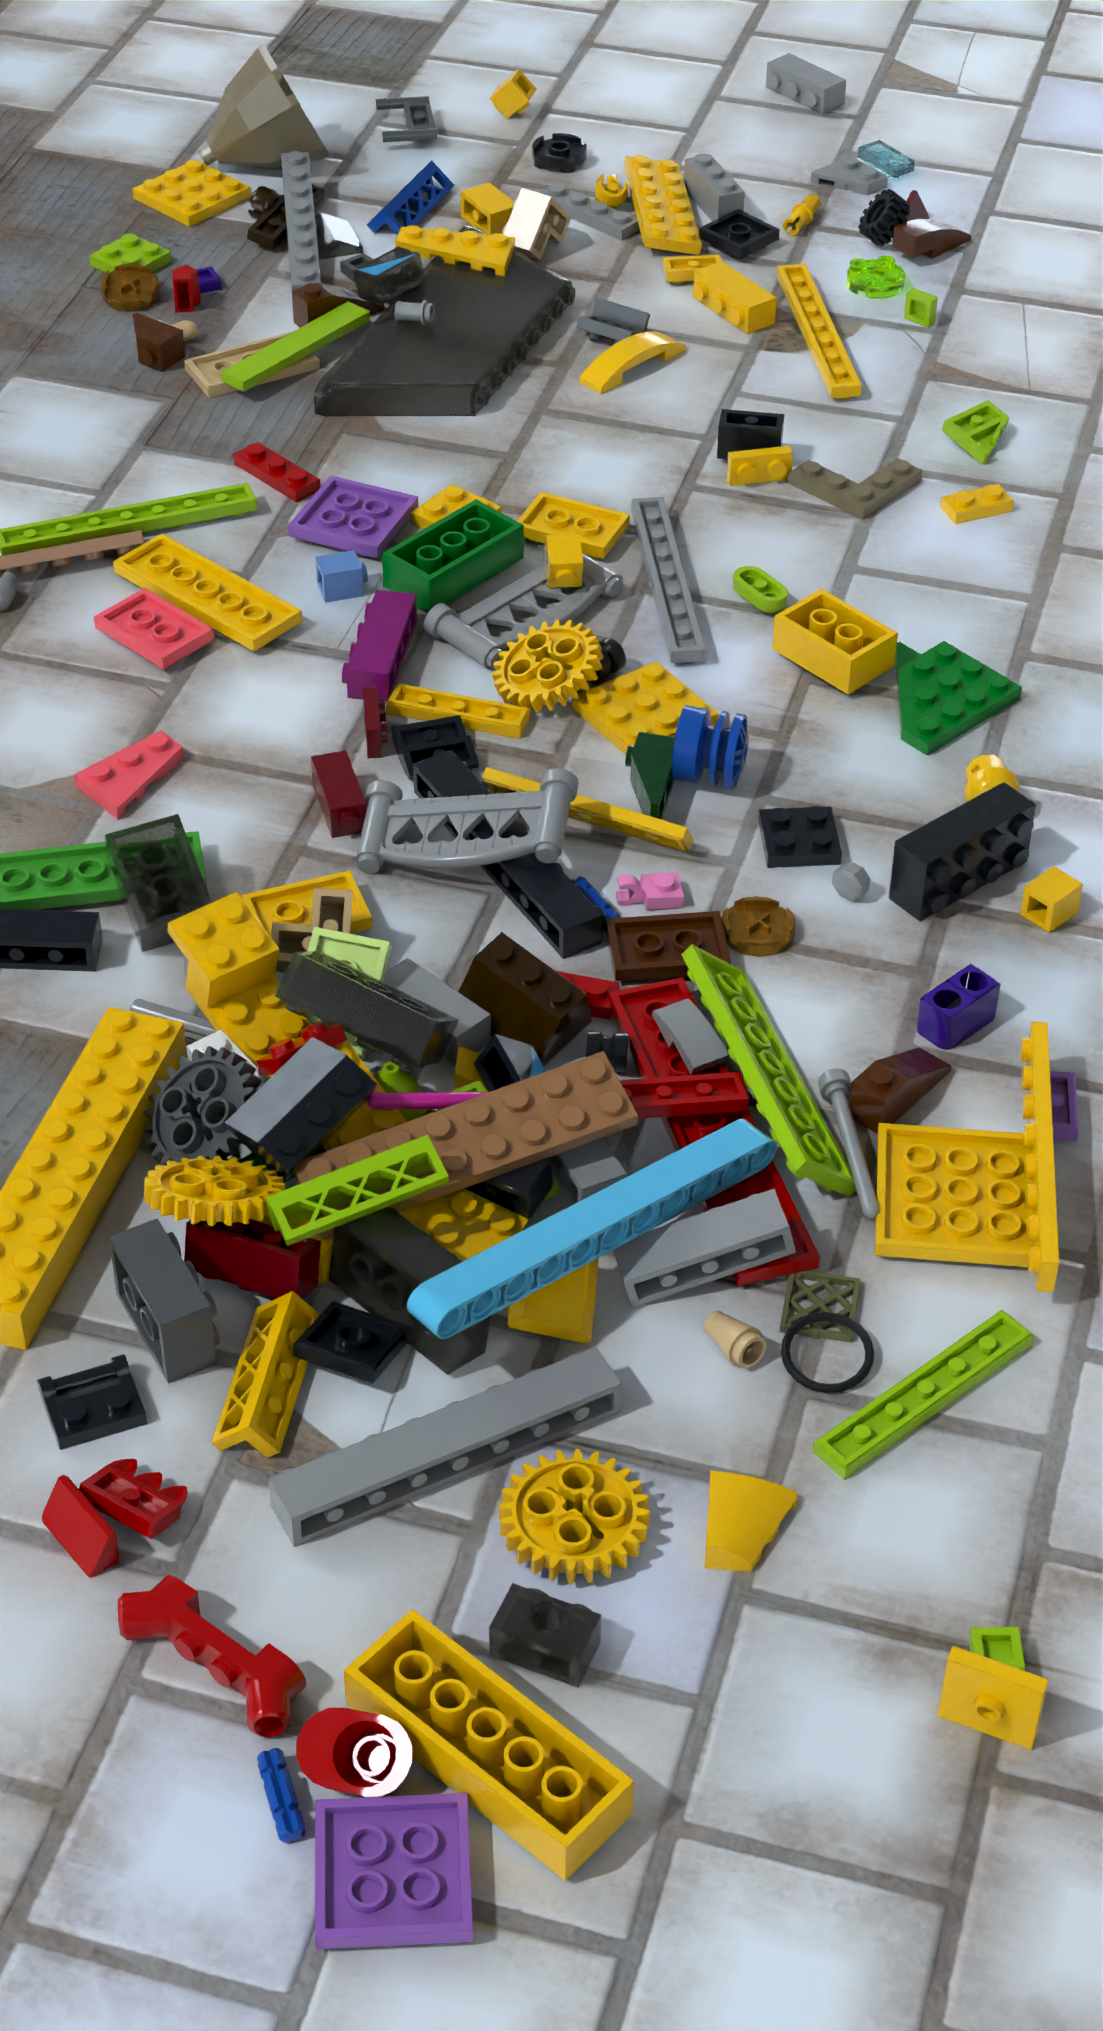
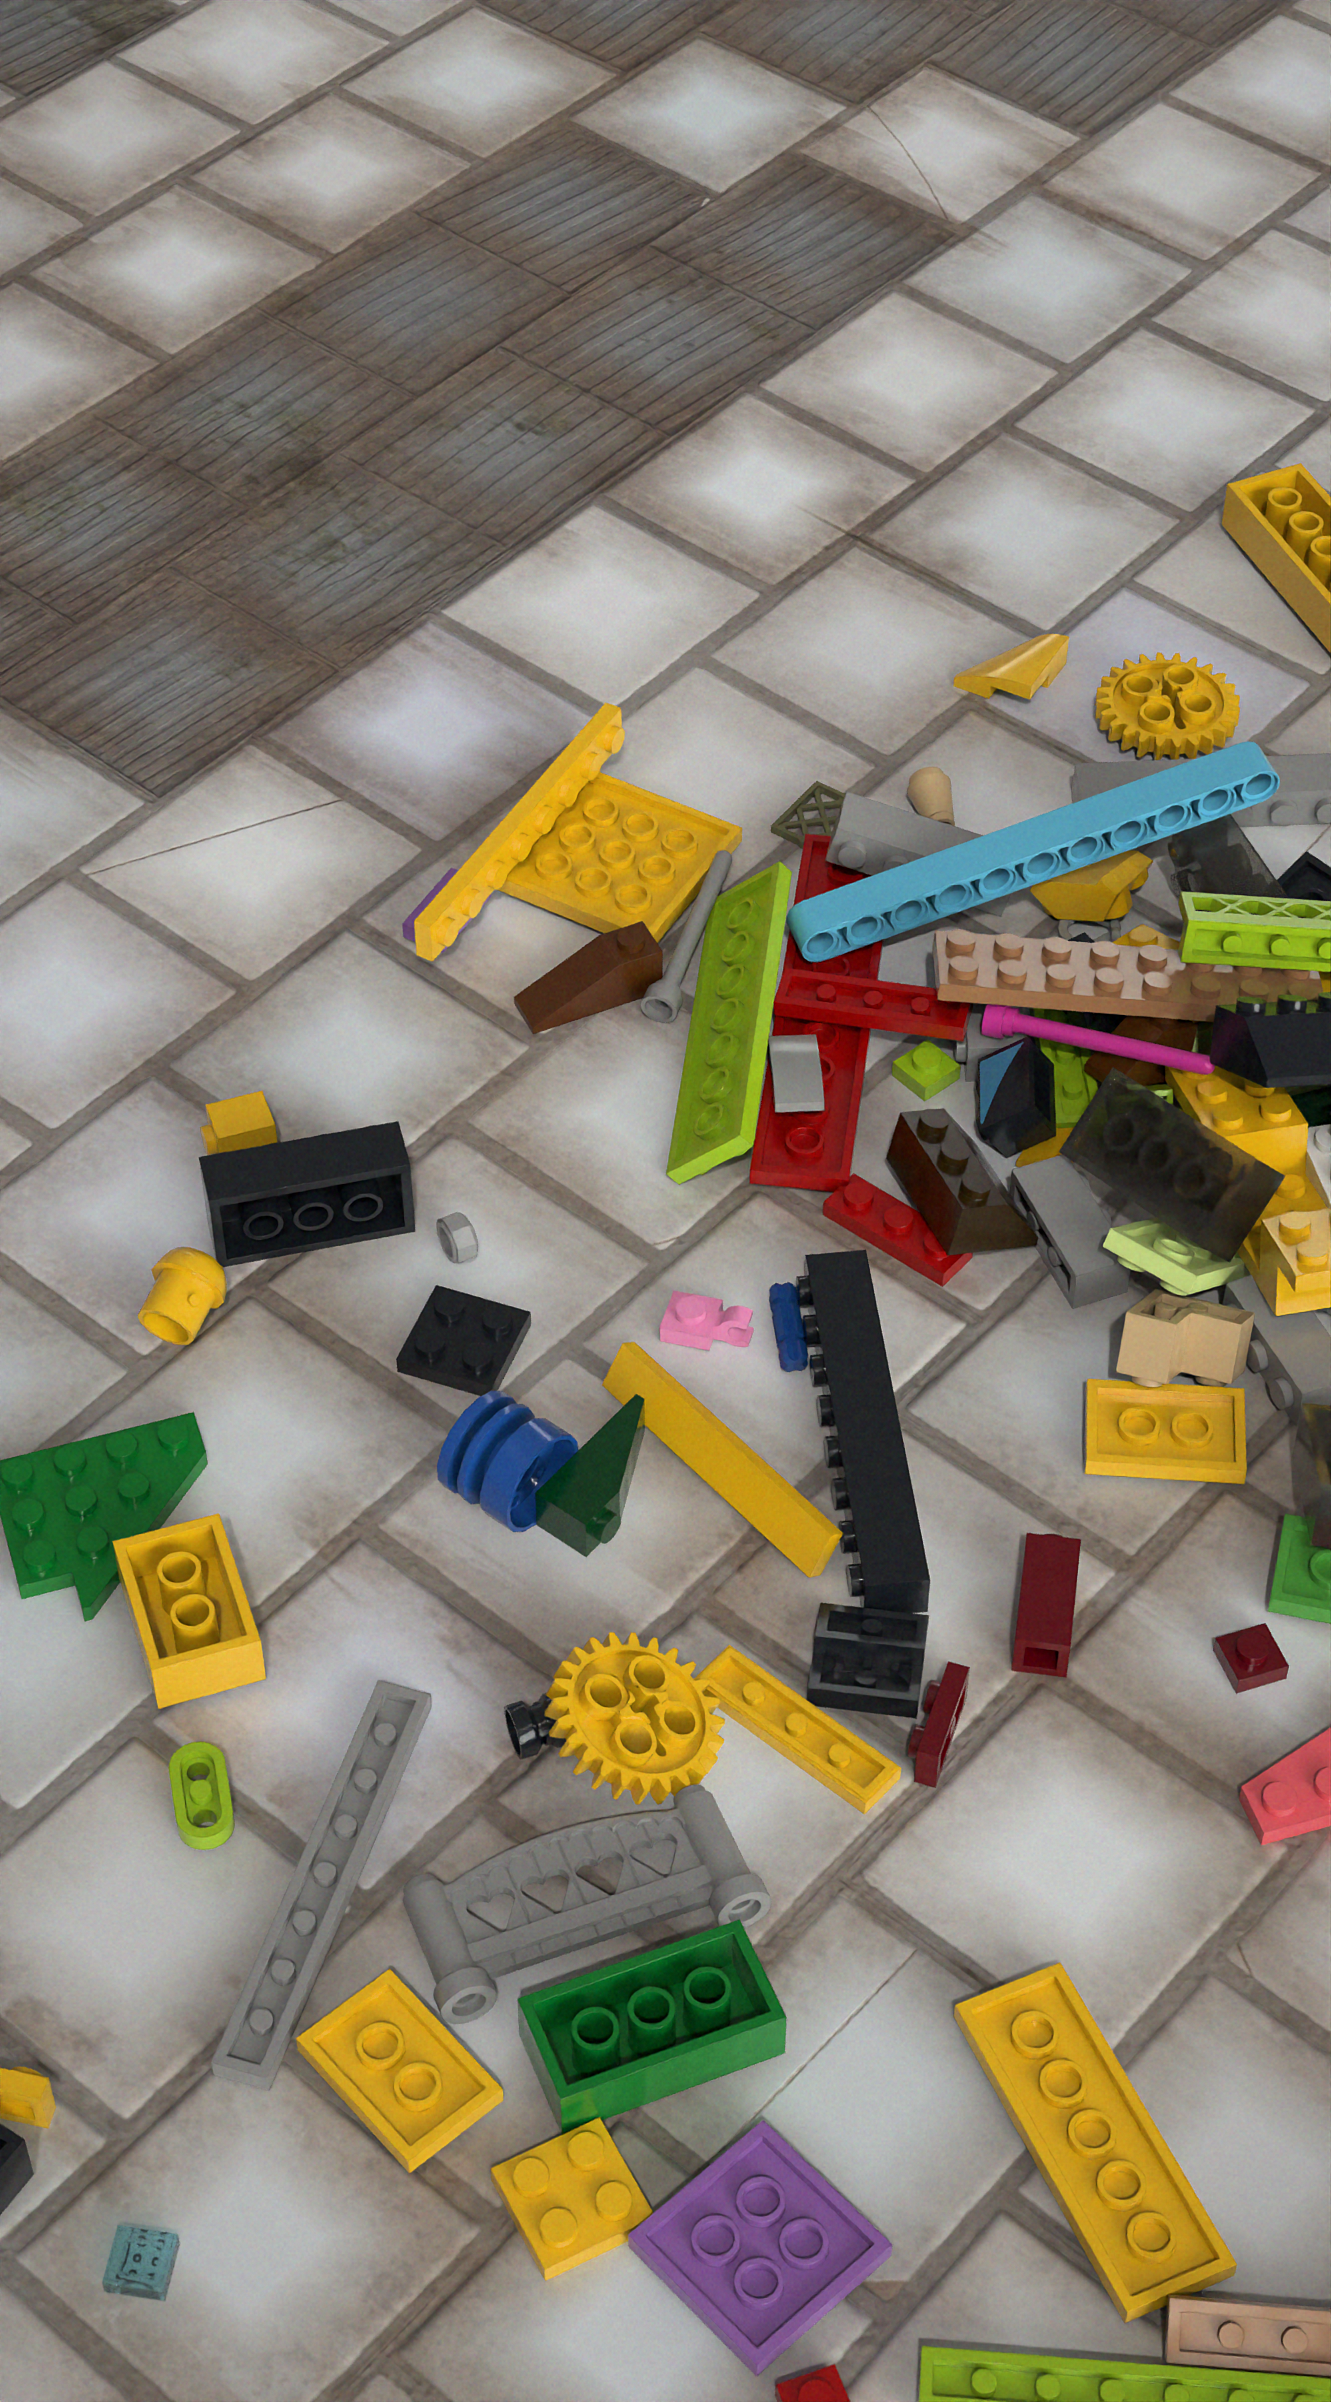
camera: 155 degrees left, 5 degrees up
(154, 628) = (1210, 2076): coral plate -> none
(202, 815) = (1250, 1658): none -> dark red plate
(285, 1049) = (1276, 1125): red plate -> none
(340, 576) = (852, 2078): medium blue brick -> none
(380, 644) = (856, 1884): magenta brick -> none
(390, 816) = (999, 1515): light grey piece -> none
(558, 1654) = (1237, 633): clear smoke brick -> none
(563, 560) = (493, 1905): yellow brick -> none
(614, 1048) = (881, 1111): black wheel -> none
(638, 702) = (517, 1622): yellow plate -> none
(641, 447) = (141, 2263): none -> clear light blue tile
(654, 944) = (736, 1229): reddish brown plate -> none
(758, 926) = (605, 1235): pearl gold tile -> none
(822, 1387) = (849, 748): black tyre -> none
(922, 1394) = (781, 719): lime tile -> none
(977, 1009) = (452, 1053): dark purple piece -> none
(992, 1697) = (906, 470): yellow plate -> none
(998, 1644) = (869, 523): lime plate -> none

